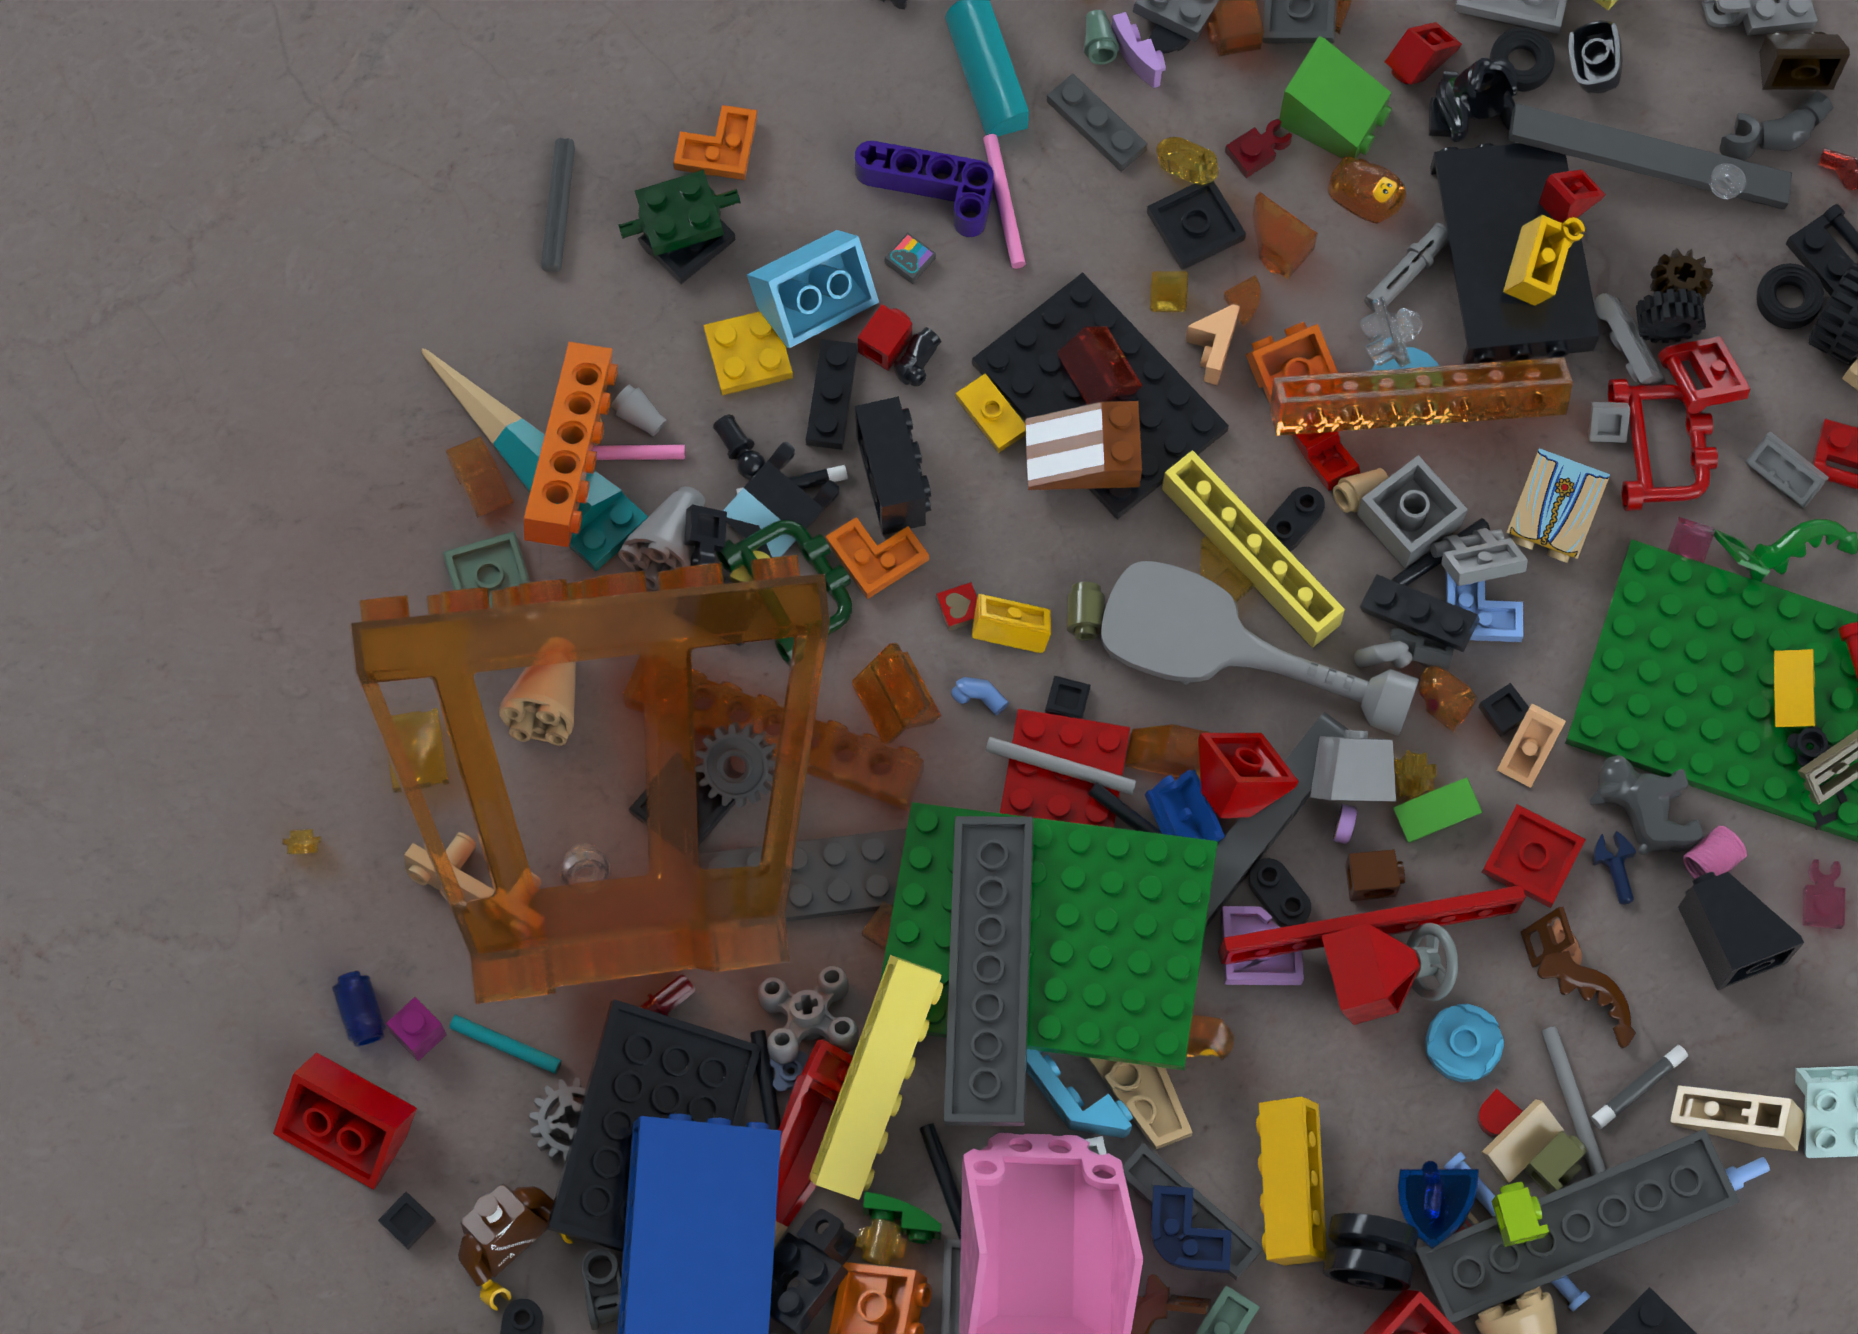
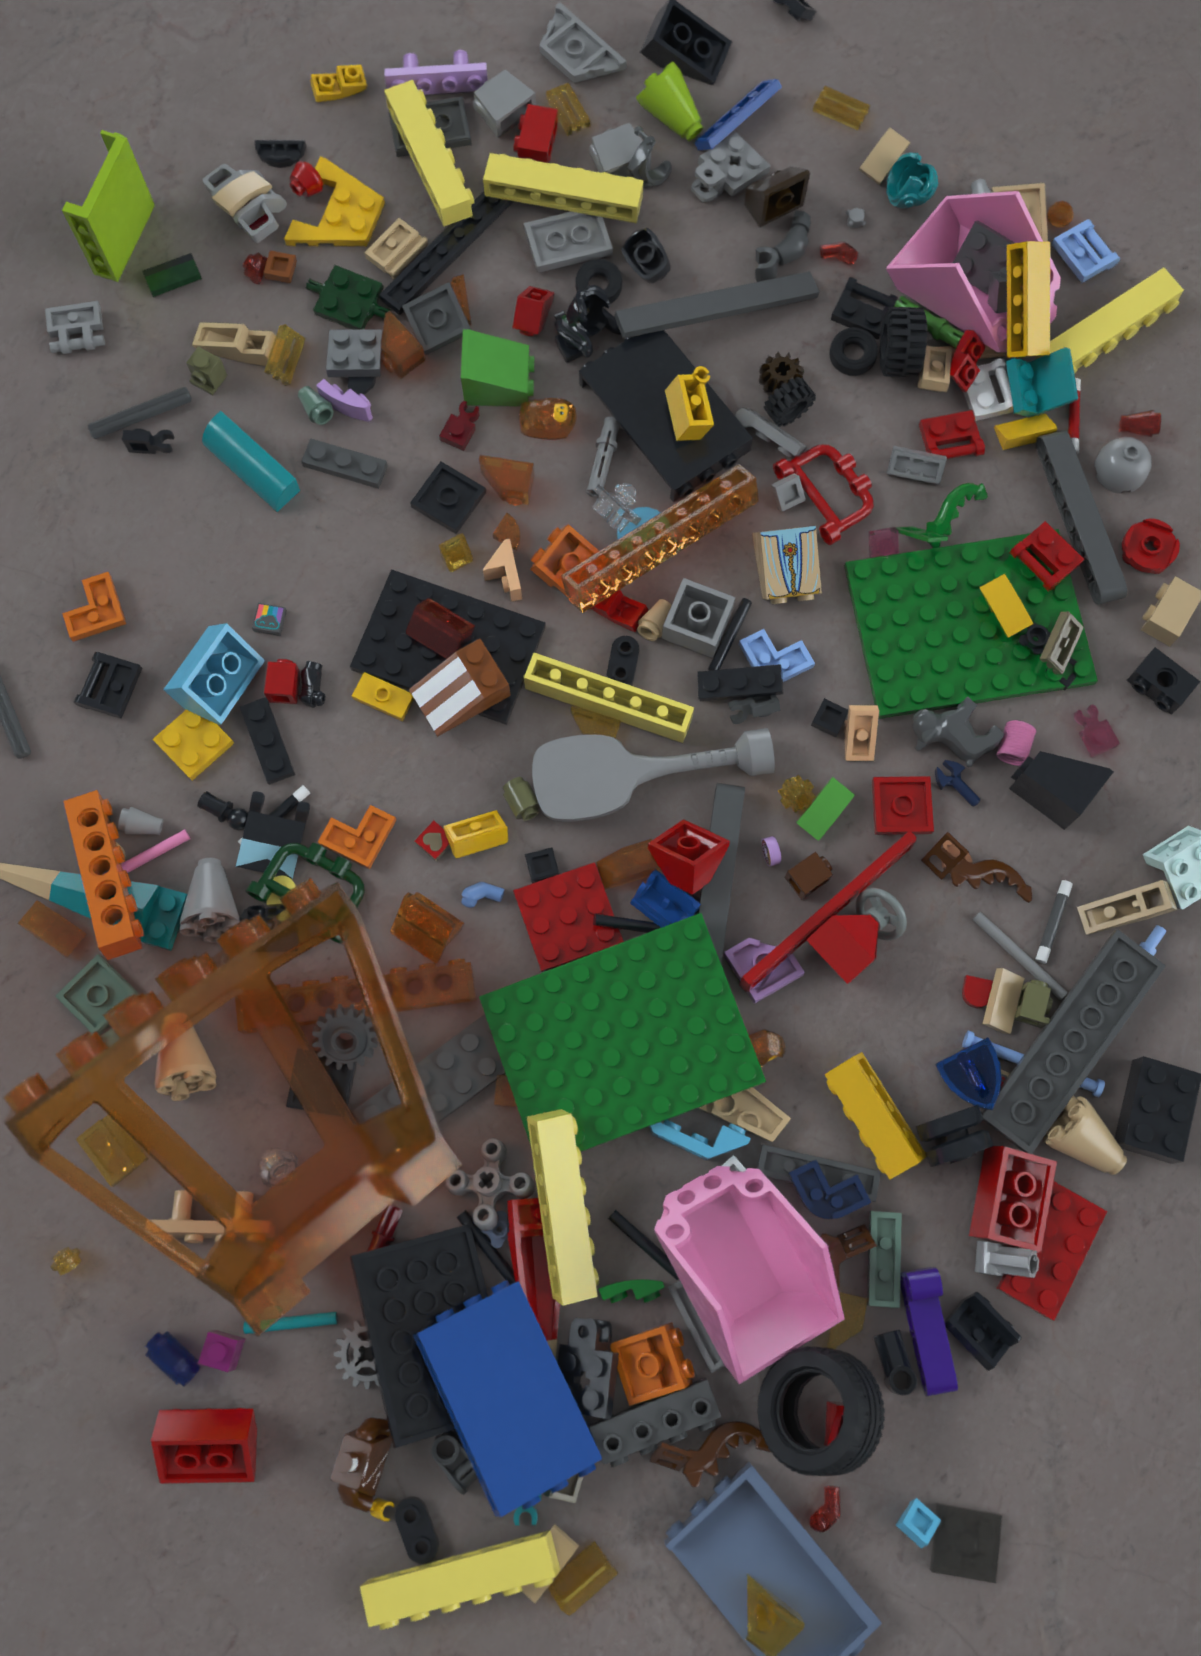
camera: 30 degrees left, 5 degrees up
(407, 1220) = (290, 1492): black plate -> none
(679, 213) = (92, 670): dark green plate -> none
(706, 531) = (234, 886): black plate -> none
(881, 1242) = (628, 1316): clear yellow gear -> none
(892, 465) = (336, 768): black brick -> none
(922, 180) = (249, 562): dark purple beam -> none
(989, 971) = (600, 1090): dark grey plate -> none
(1004, 201) = (312, 548): bright pink bar -> none
(1060, 765) = (564, 915): light grey bar -> none
(1187, 160) = (419, 458): clear yellow beam -> none
(1278, 892) = (753, 923): black plate -> none
(1354, 768) = (759, 811): light grey torso -> none
(1381, 653) = (734, 721): light grey arm -> none
(1446, 696) = (788, 729): clear orange rock -> none
(1464, 1043) = (928, 955): medium azure tile -> none
(1479, 556) = (758, 624): light grey plate -> none
(1518, 1215) = (1037, 1057): lime brick -> none
(1569, 194) = (683, 355): red slope -> none
(1715, 369) = (834, 422): red plate -> none
(1721, 186) = (776, 295): clear plate -> none

